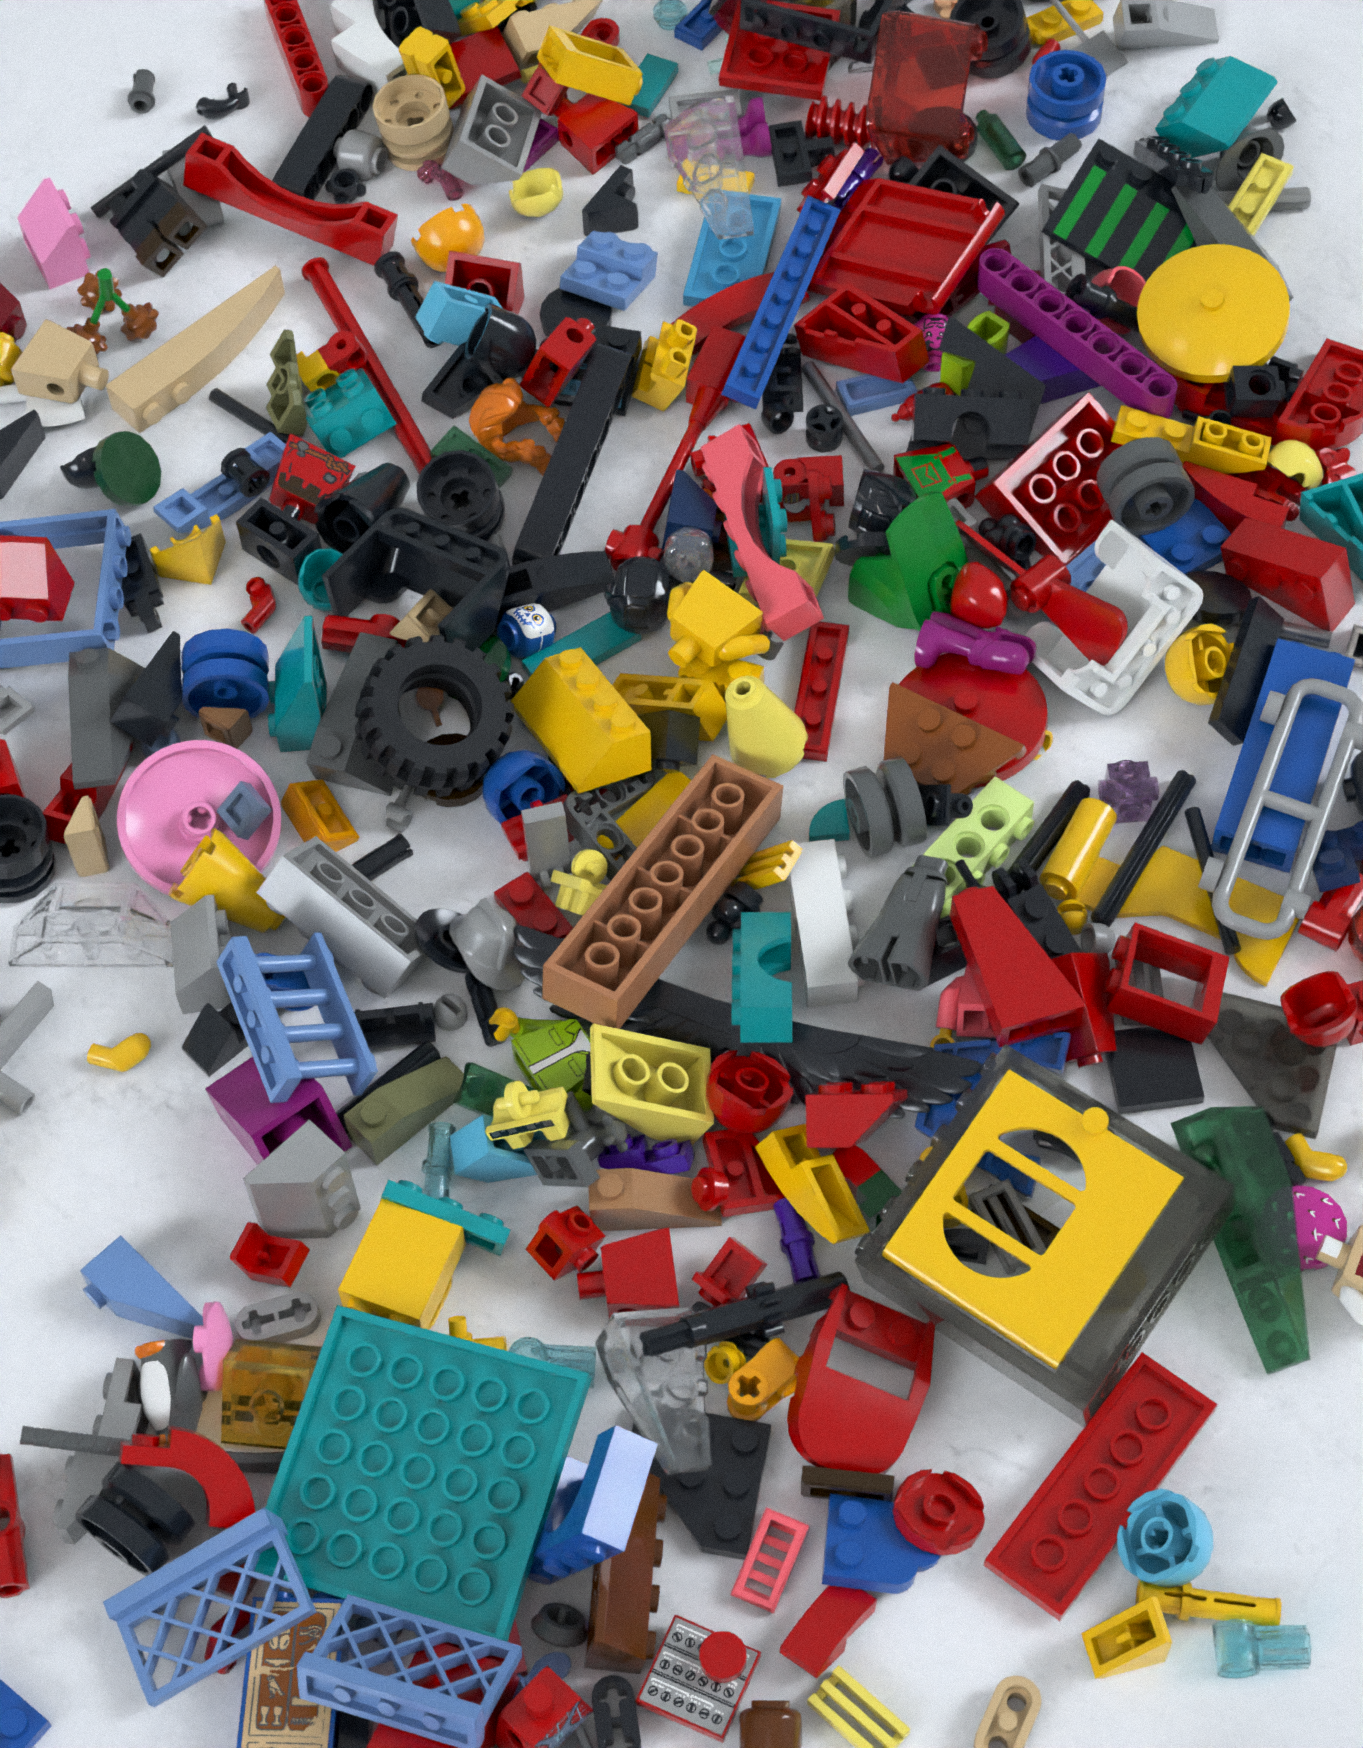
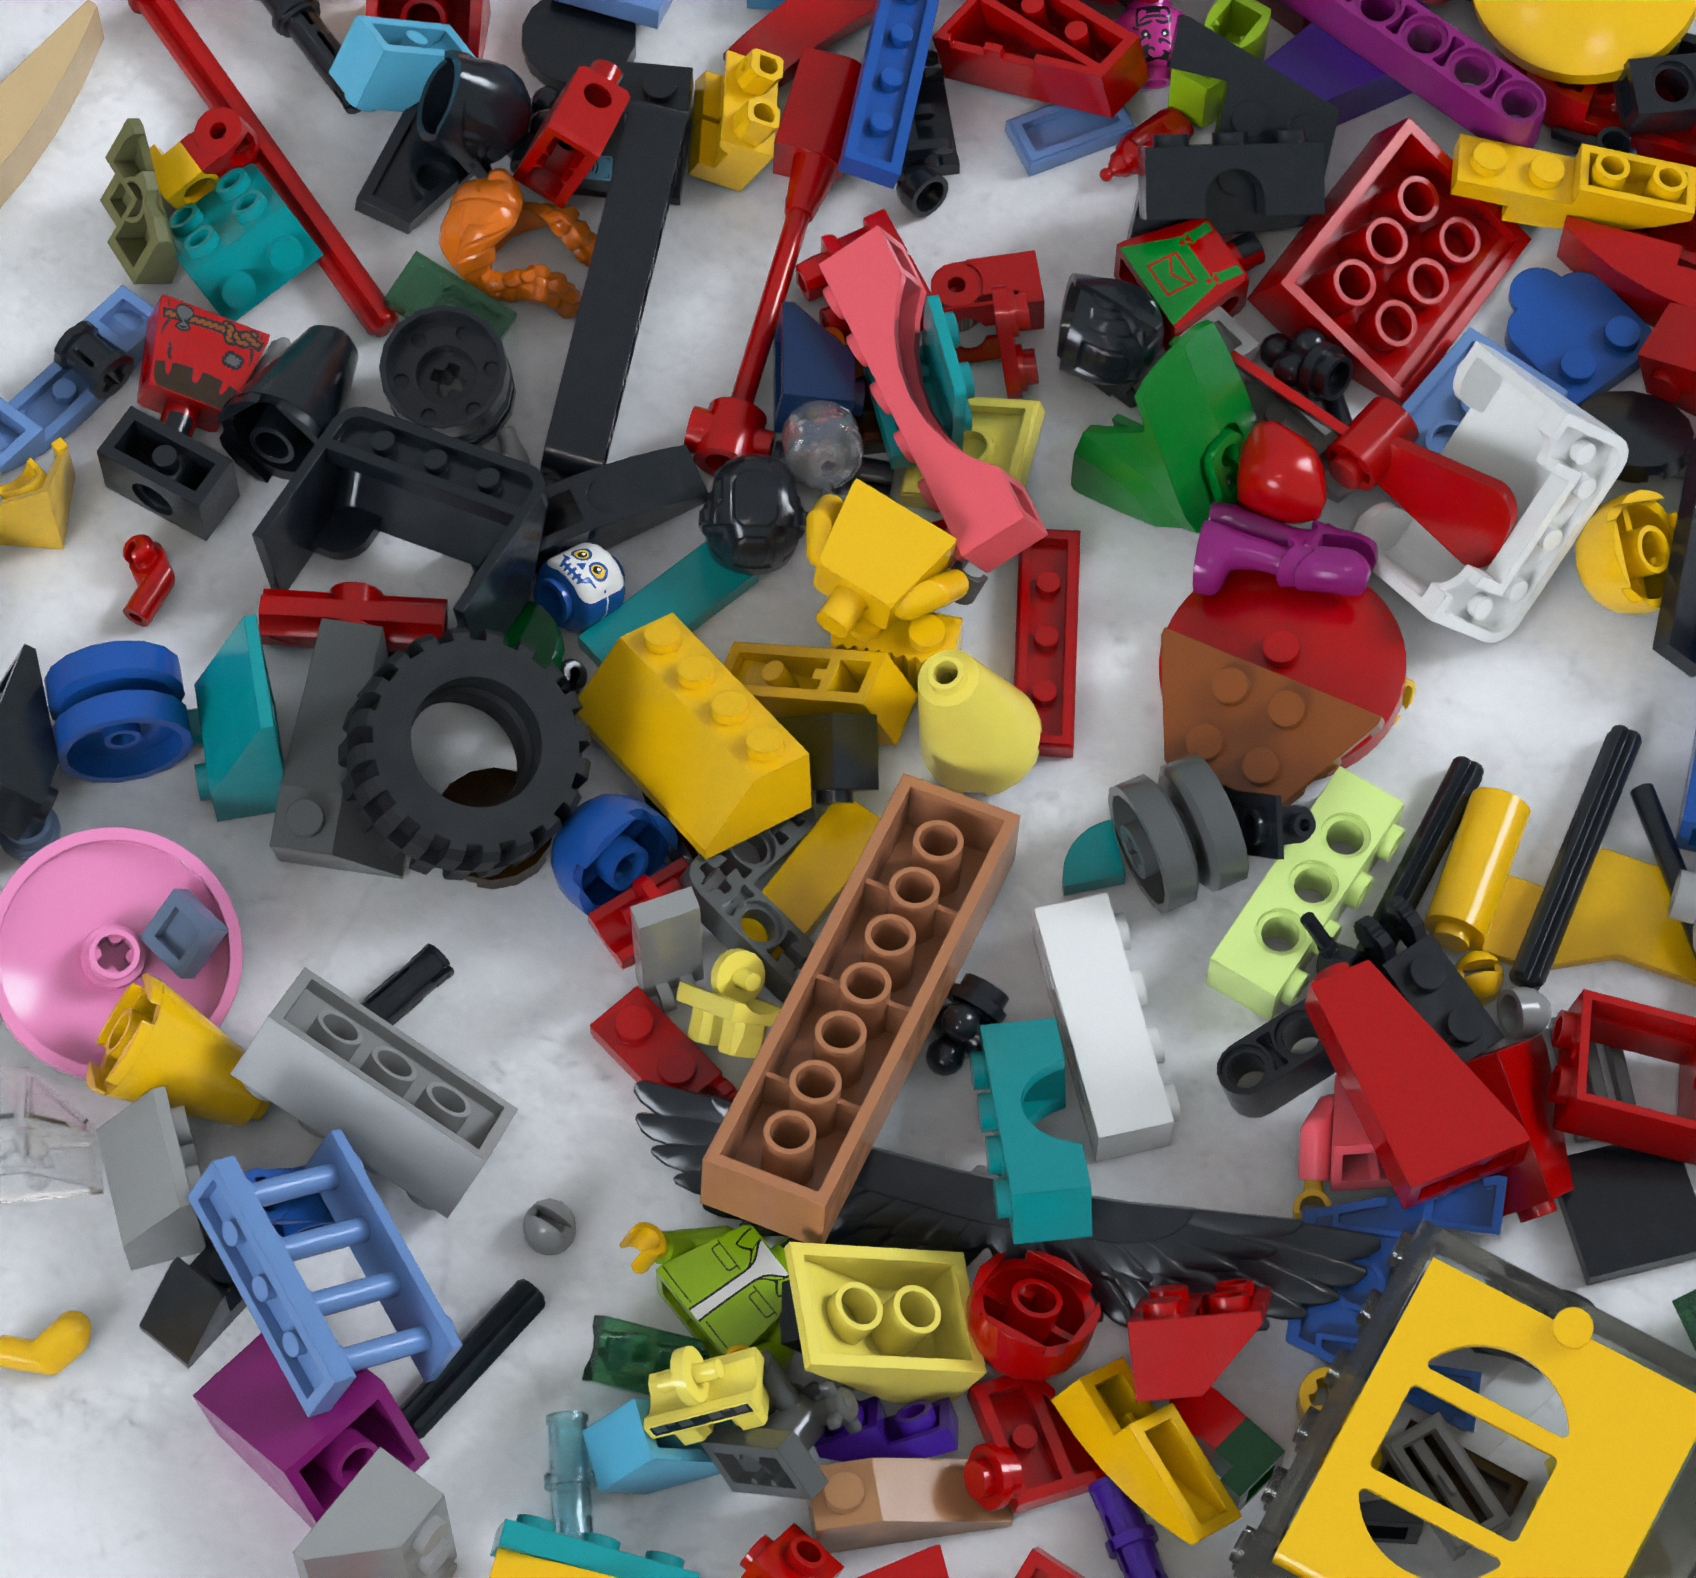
camera: 10 degrees left, 5 degrees up
(226, 725) = (128, 790): medium nougat slope -> none
(245, 414) = (83, 259): black bar -> none
(310, 577) = (232, 524): teal hair -> none
(318, 814) = (294, 924): light orange slope -> none
(397, 814) = (419, 912): light grey hand -> none
(397, 1025) = (473, 1256): black hinge -> none
(402, 1108) = (504, 1390): olive slope -> none
(423, 618) = (420, 588): tan slope -> none
(430, 699) = (446, 719): dark orange piece -> none
(435, 940) = (539, 1113): black dish -> none
(484, 1007) = (601, 1211): black axle -> none
(487, 943) = (594, 1112): light grey piece -> none
(764, 865) = (1011, 938): yellow tile -> none
(826, 418) = (1006, 189): black wheel -> none
(849, 427) = (1023, 180): flat silver bar -> none
(866, 545) = (1095, 407): black tile -> none
(903, 936) = (1237, 1038): dark grey piece -> none
(1129, 790) = (1544, 766): clear purple brick -> none
(1145, 485) = (1514, 267): dark grey wheel -> none

